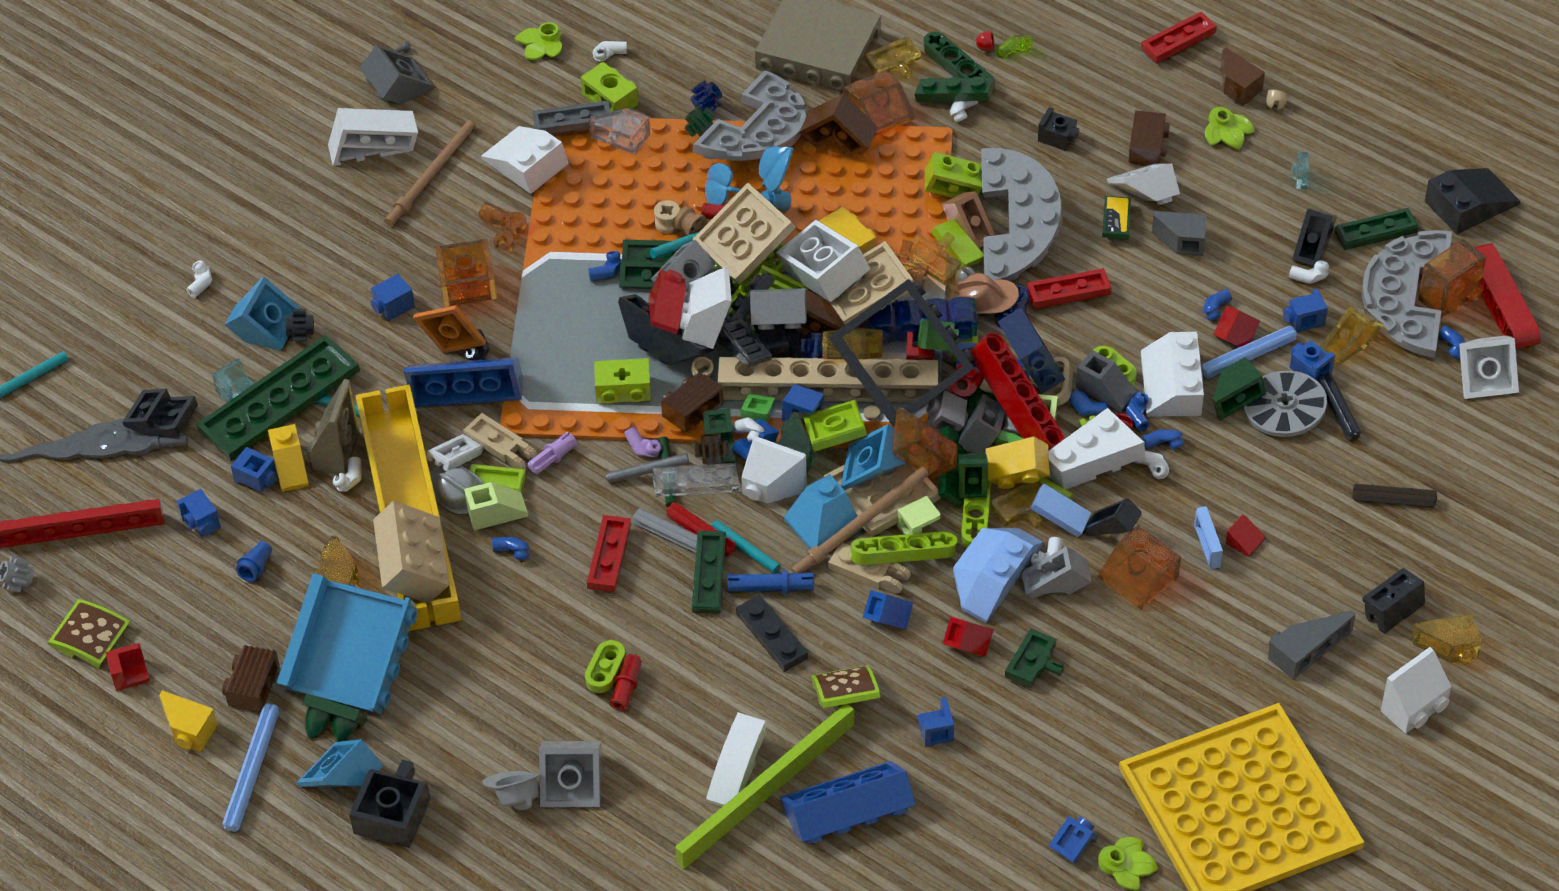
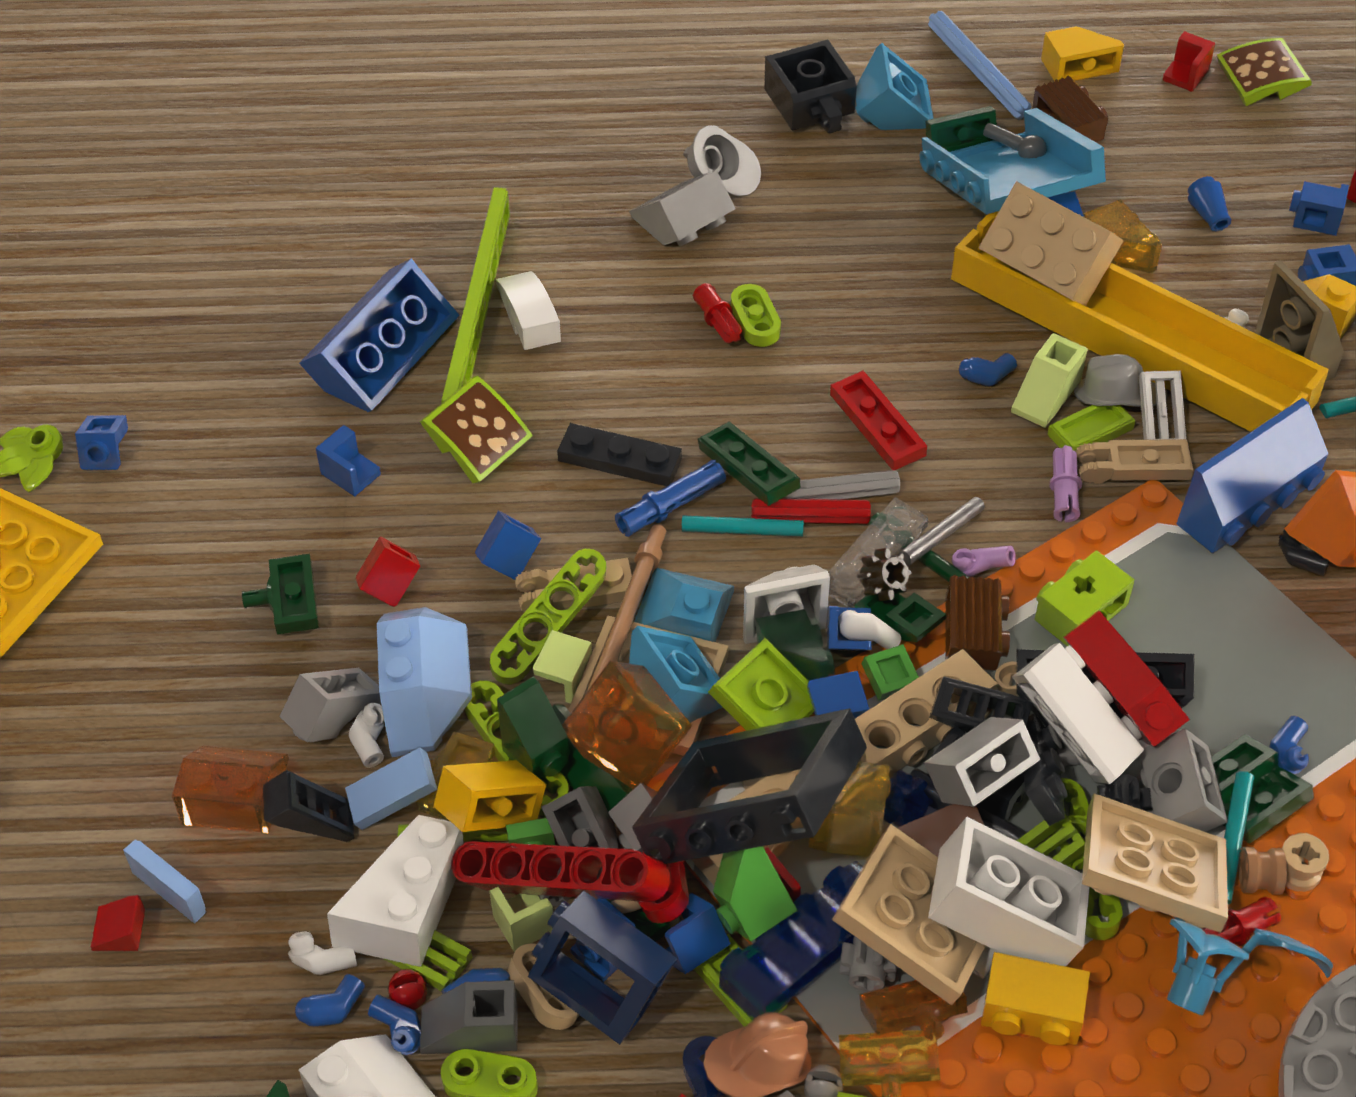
camera: 140 degrees right, 0 degrees up
(314, 660) = (1027, 147): none -> dark grey bar

